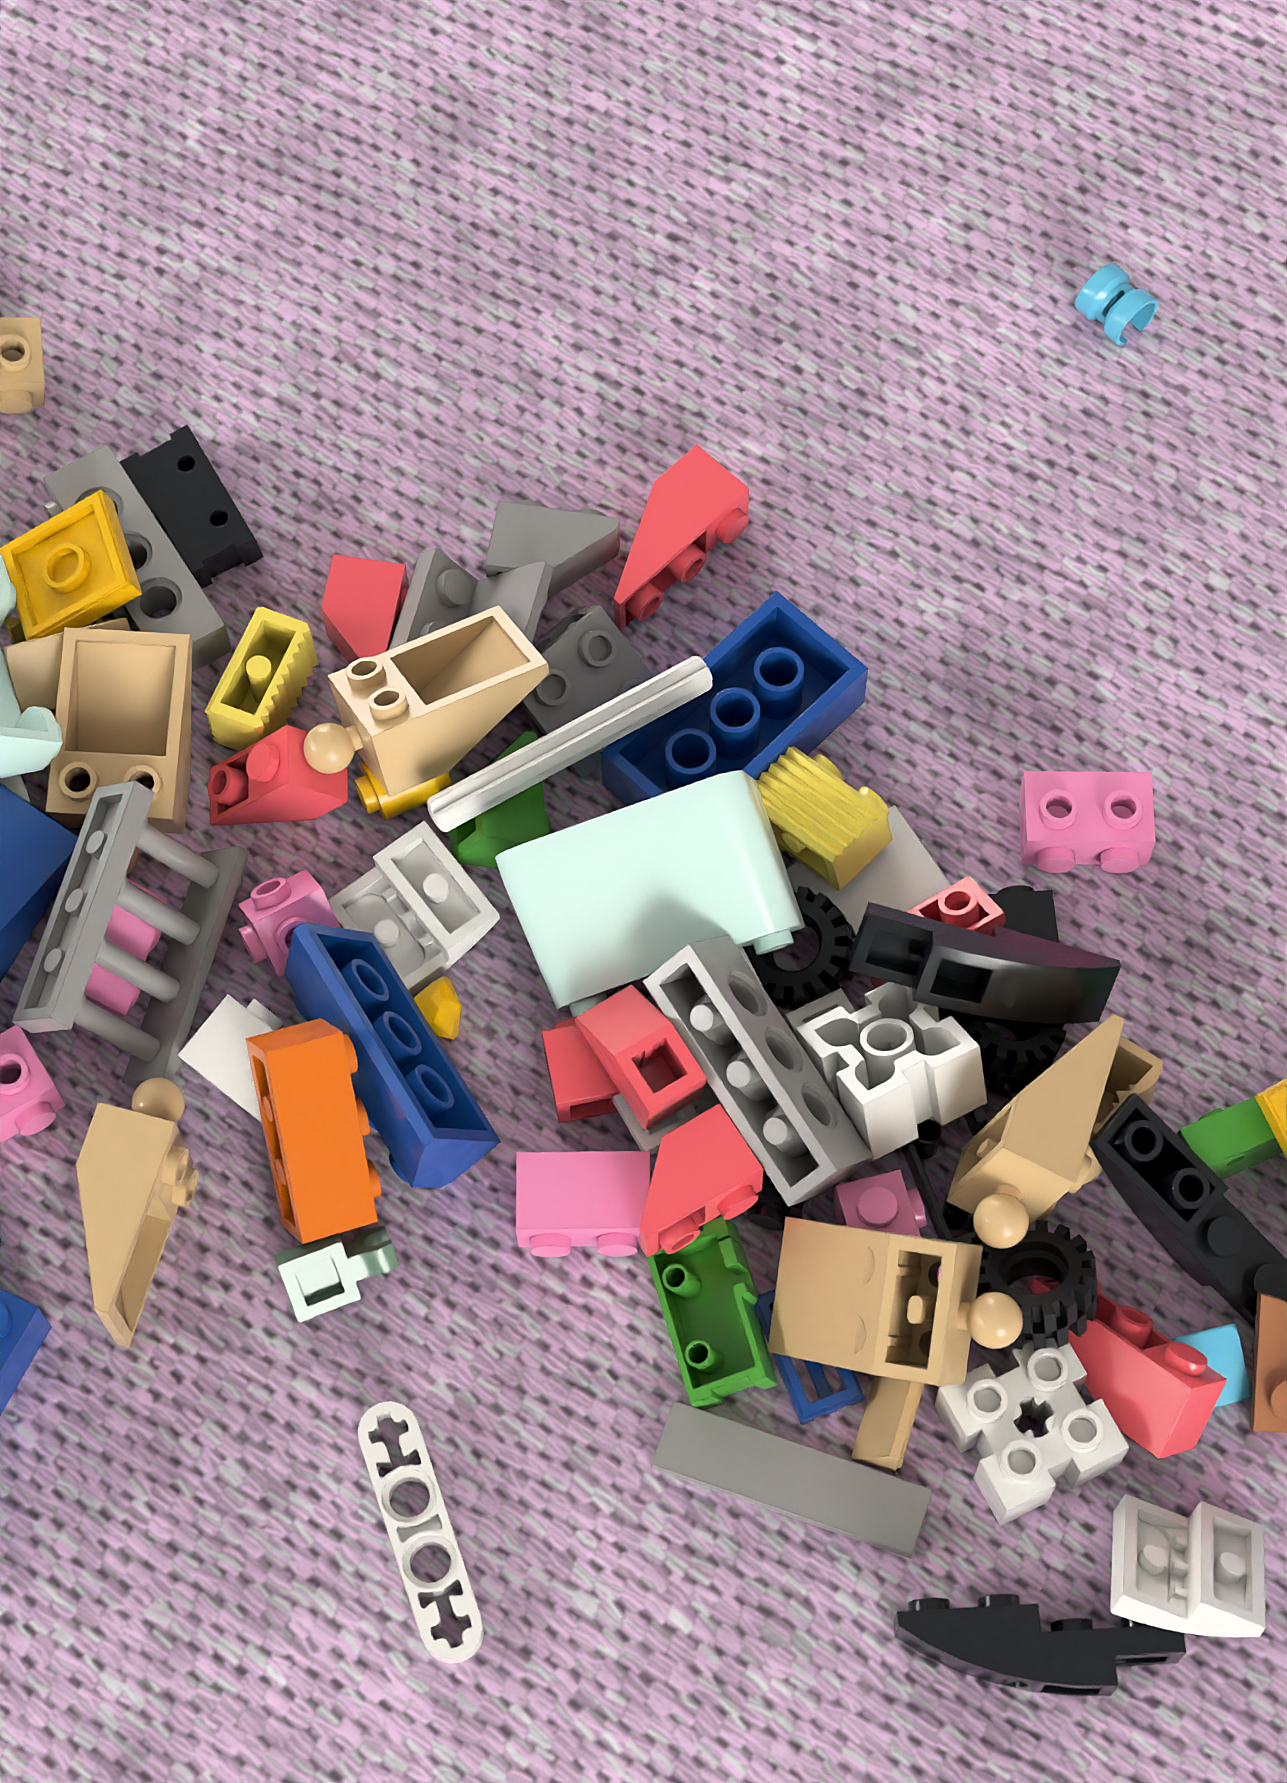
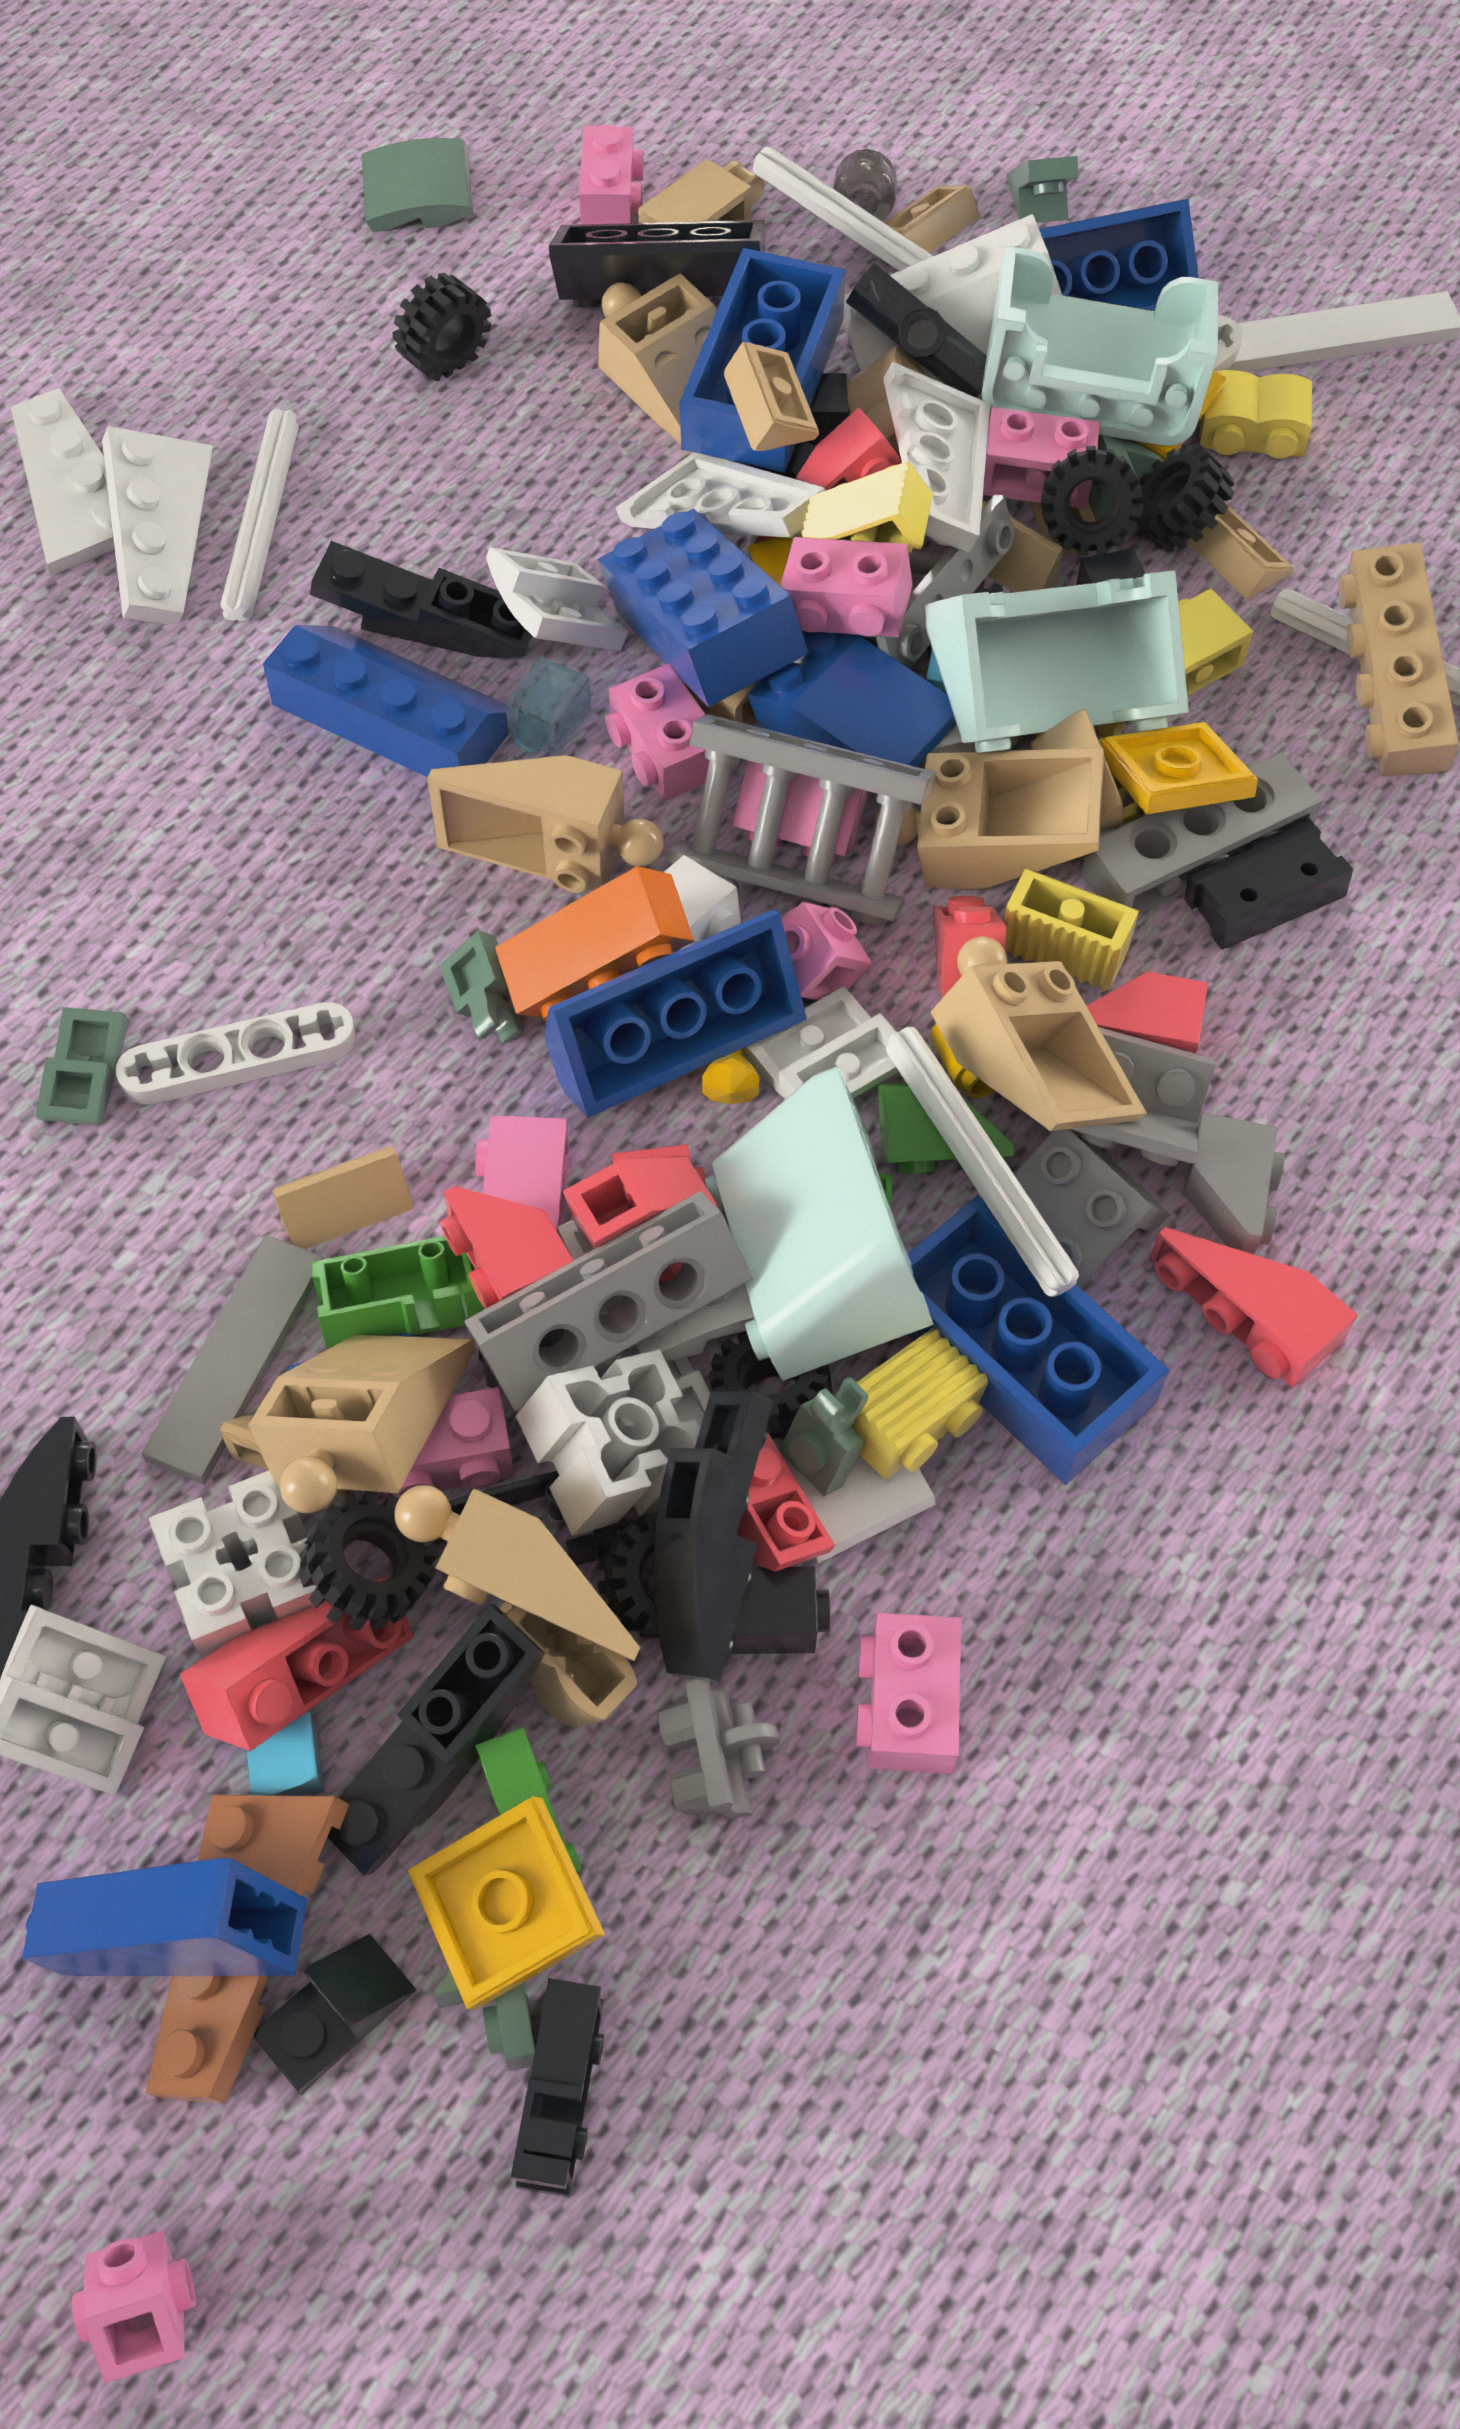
camera: 90 degrees right, 5 degrees down
(443, 1704) = (83, 1071): none -> sand green slope
(606, 1387) = (343, 1198): none -> tan slope
(867, 877) = (822, 1437): none -> sand green plate
(1188, 982) = (724, 1750): none -> light grey hips

